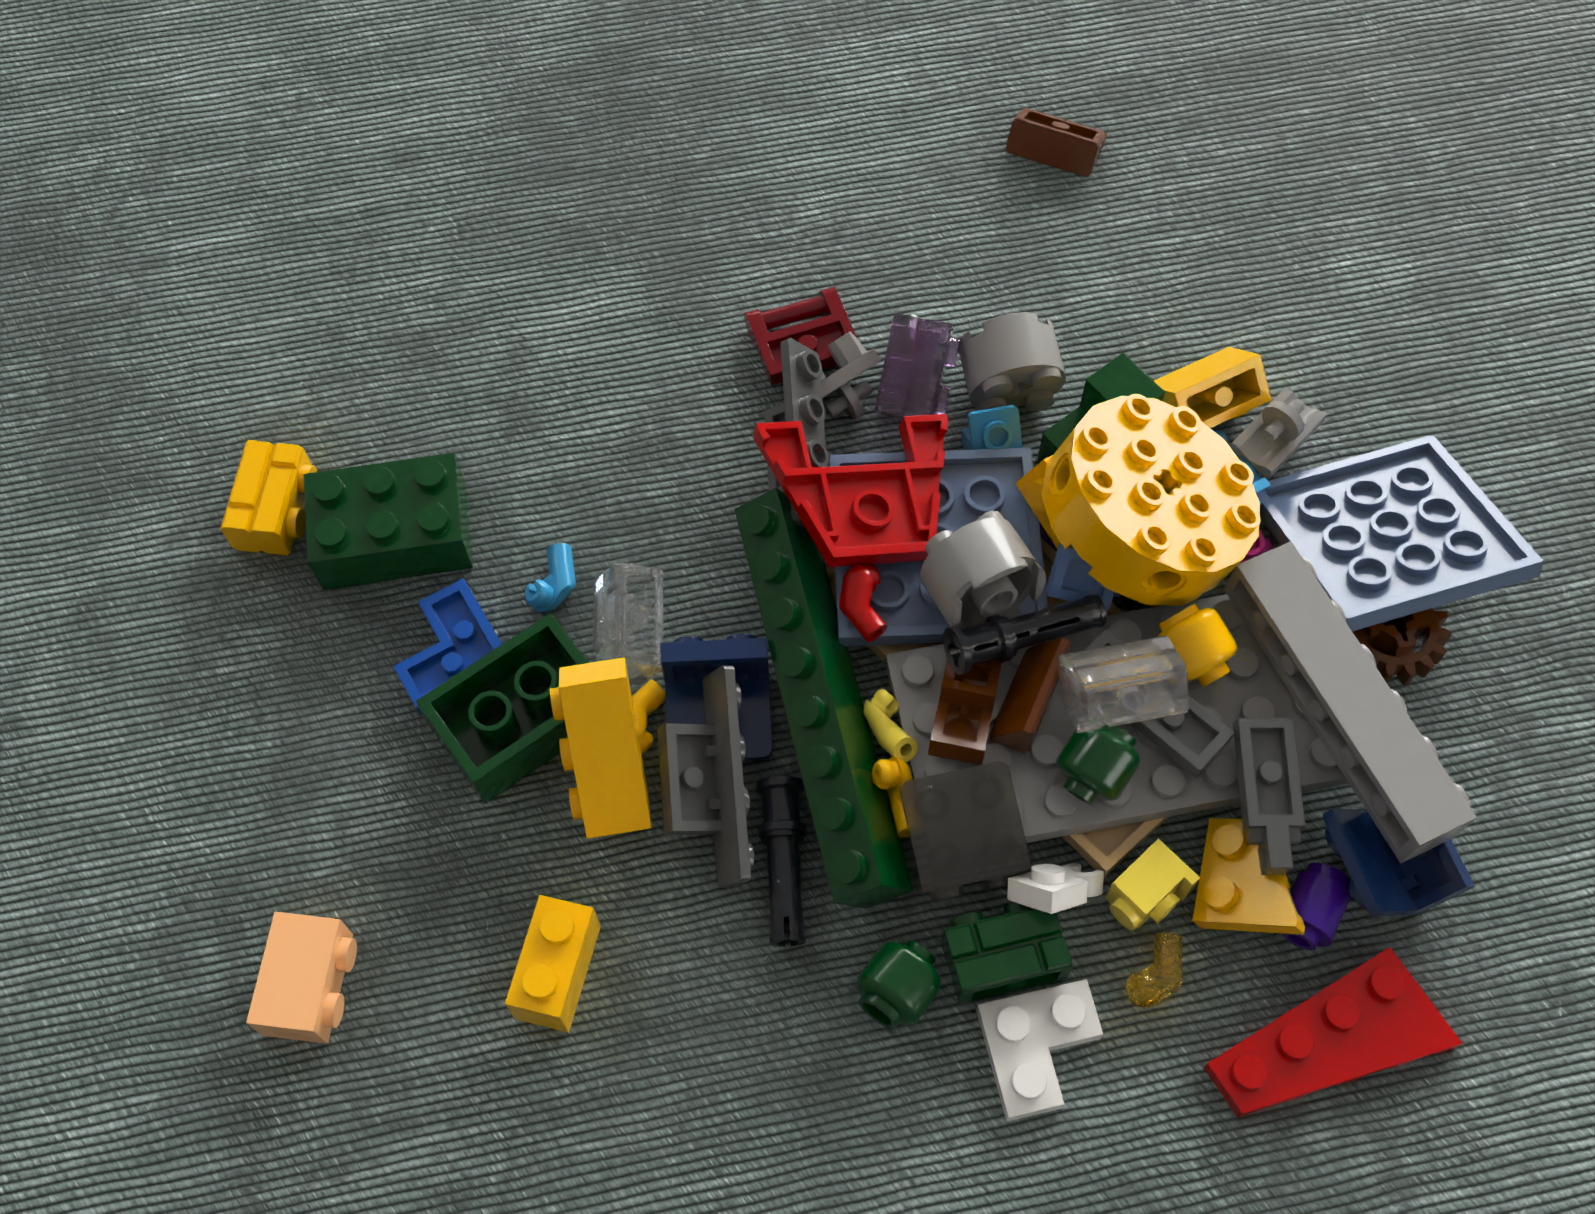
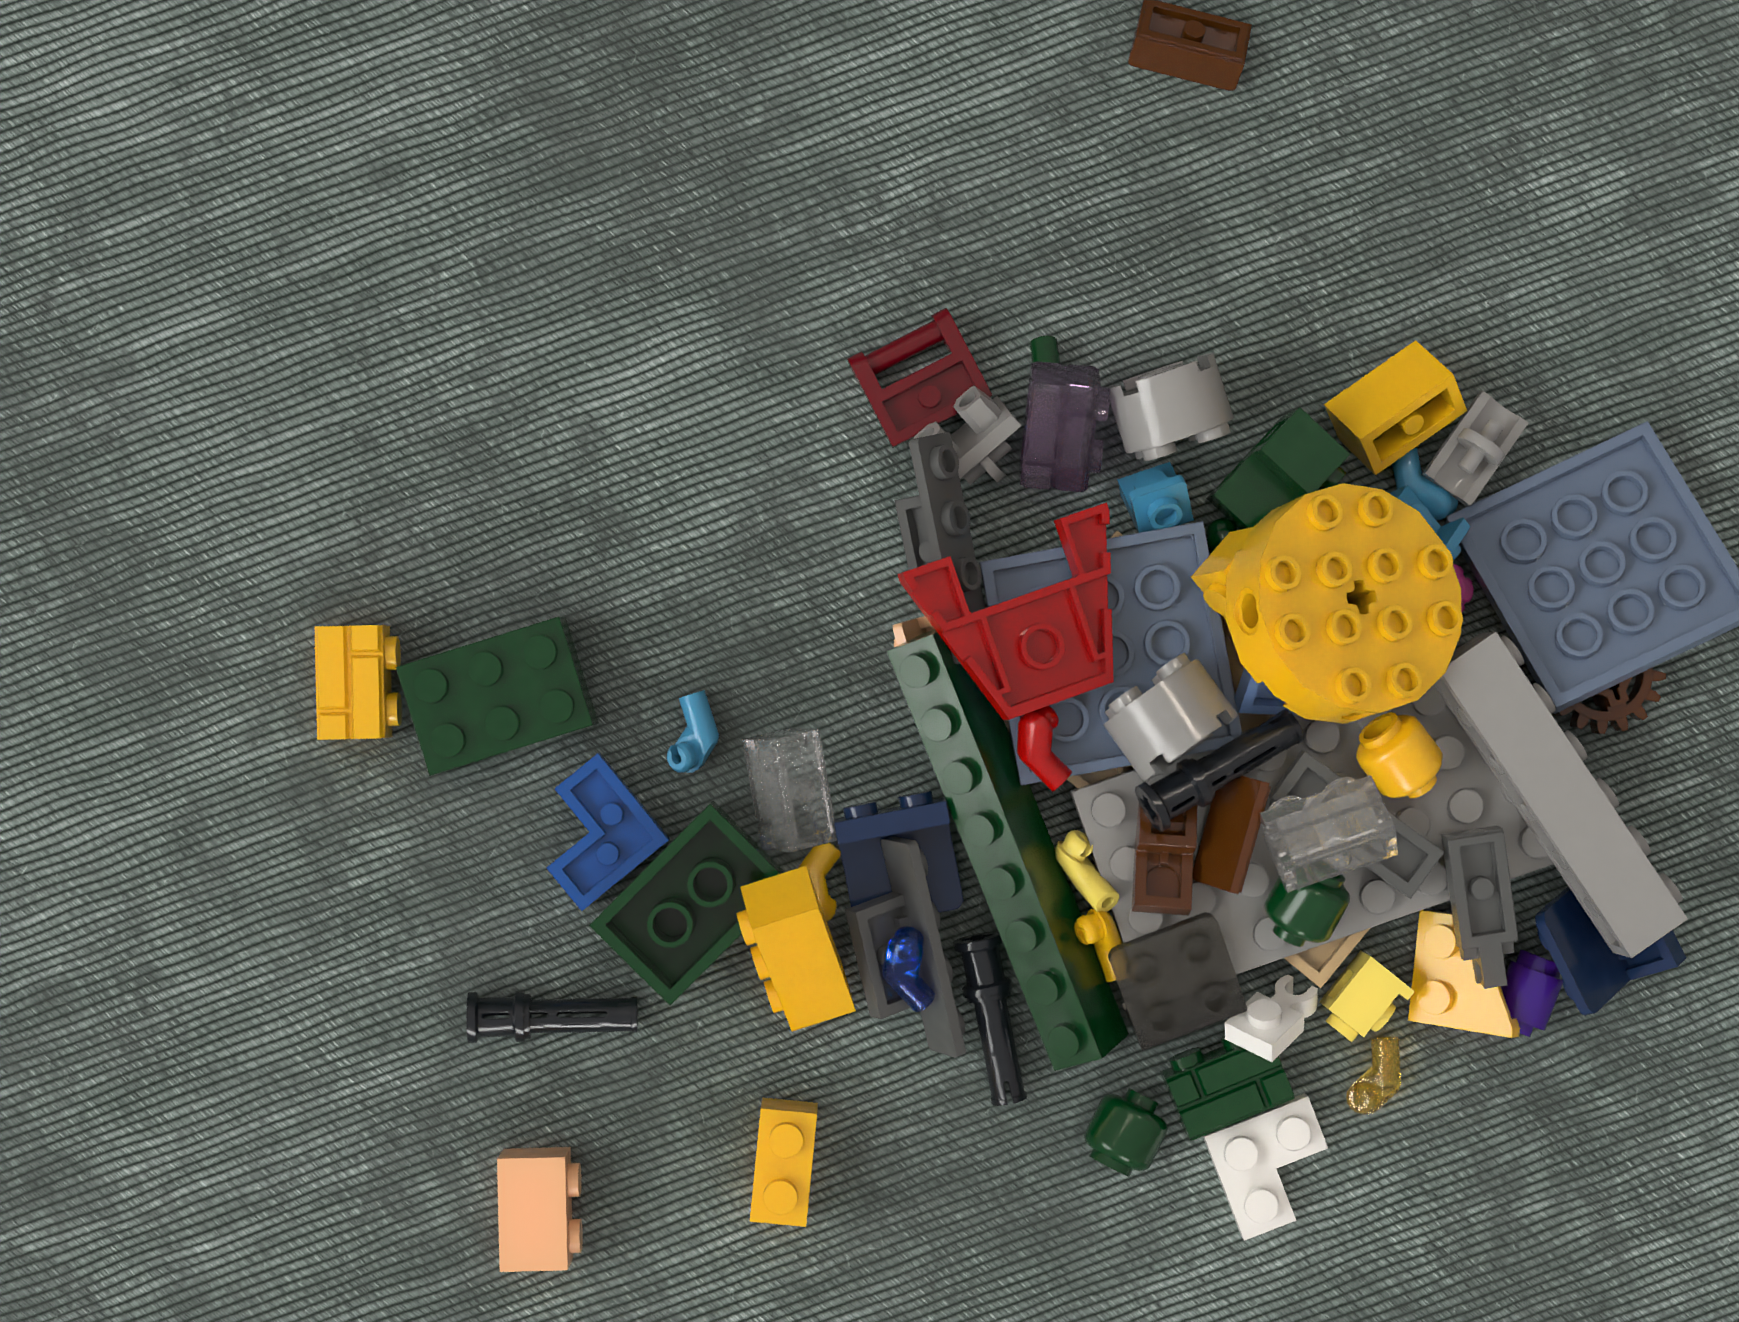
camera: 20 degrees left, 25 degrees up
(339, 796) = (621, 1016): none -> black pin
(701, 783) = (903, 966): none -> clear blue arm
(1342, 1033) = (1556, 1110): red wing -> none

